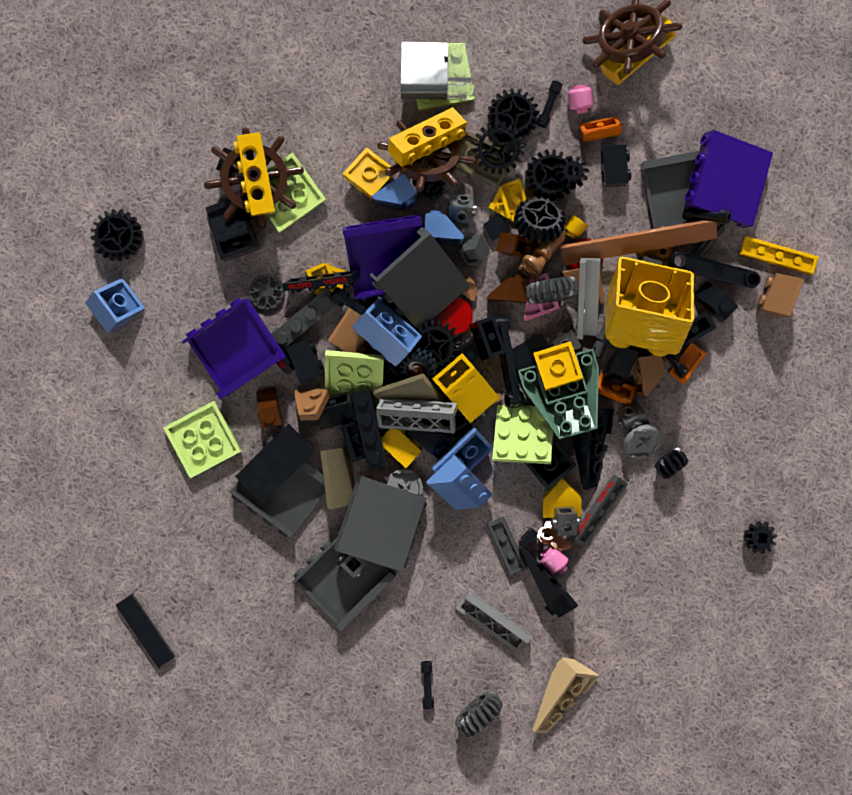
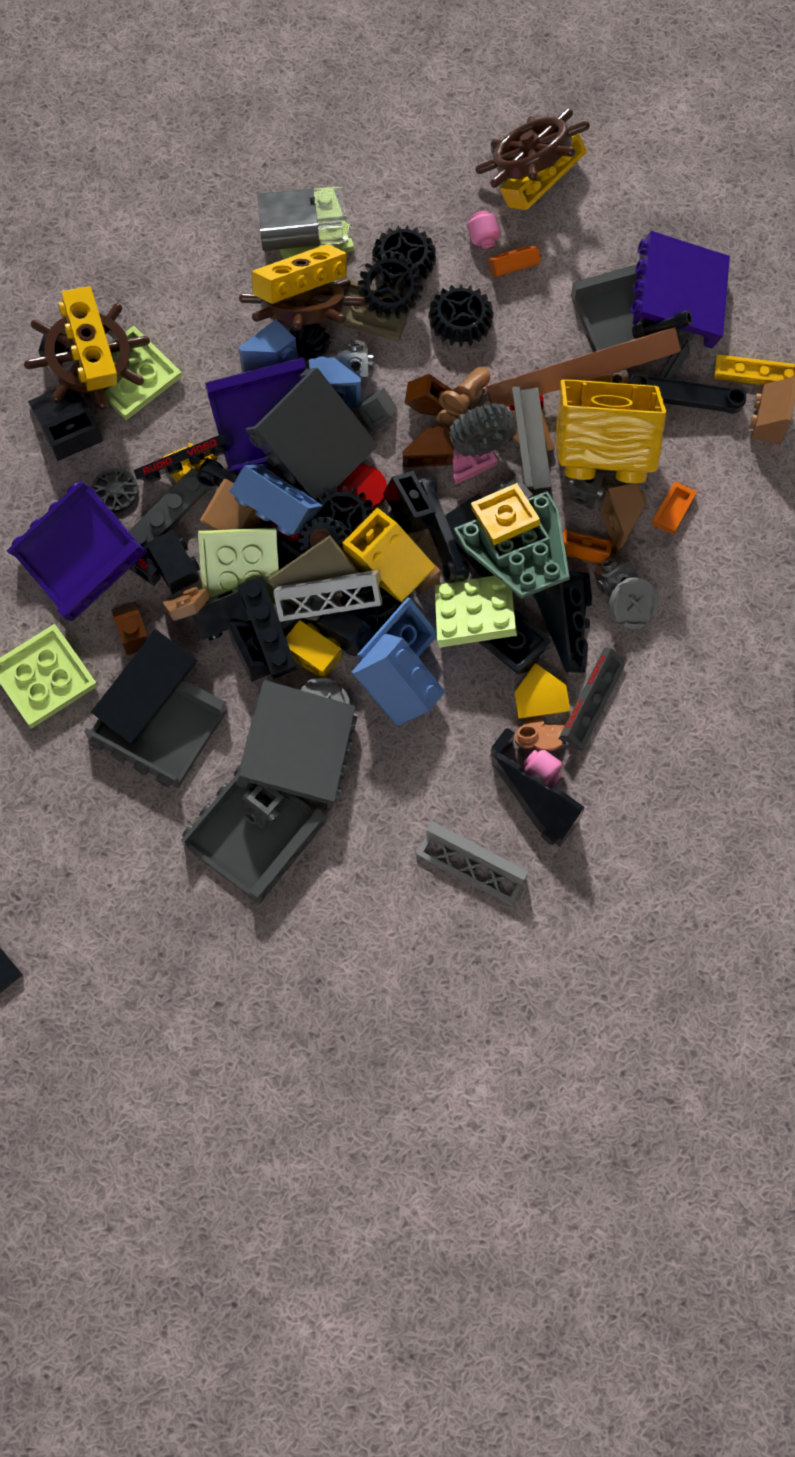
camera: 10 degrees left, 20 degrees down
(337, 477) = (230, 693): dark tan tile -> none
(368, 173) = (227, 335): yellow hinge -> none
(428, 700) = (395, 987): black bar -> none
(471, 292) = (378, 457): medium nougat tile -> none
(478, 713) = (469, 986): dark grey gear -> none
(495, 227) = (398, 382): black tile -> none
(506, 546) = (475, 763): dark grey tile -> none
(508, 199) = (416, 351): yellow slope -> none
(540, 219) = (454, 356): black gear -> none
(554, 90) = (450, 227): black bar -> none
(564, 686) = (587, 941): tan wedge -> none
(565, 522) = (557, 708): flat silver brick -> none
(571, 165) = (485, 299): black gear -> none
(575, 227) = (502, 366): yellow hat -> none
(600, 343) = (560, 488): dark grey pin -> none
(614, 166) = (538, 296): black brick -> none
(621, 365) = (588, 508): black slope -> none
(671, 463) = (677, 624): black gear -> none
(680, 369) = (665, 511): black bar -> none
(701, 326) = (674, 462): black brick -> none
(715, 301) = (696, 430): black slope -> none

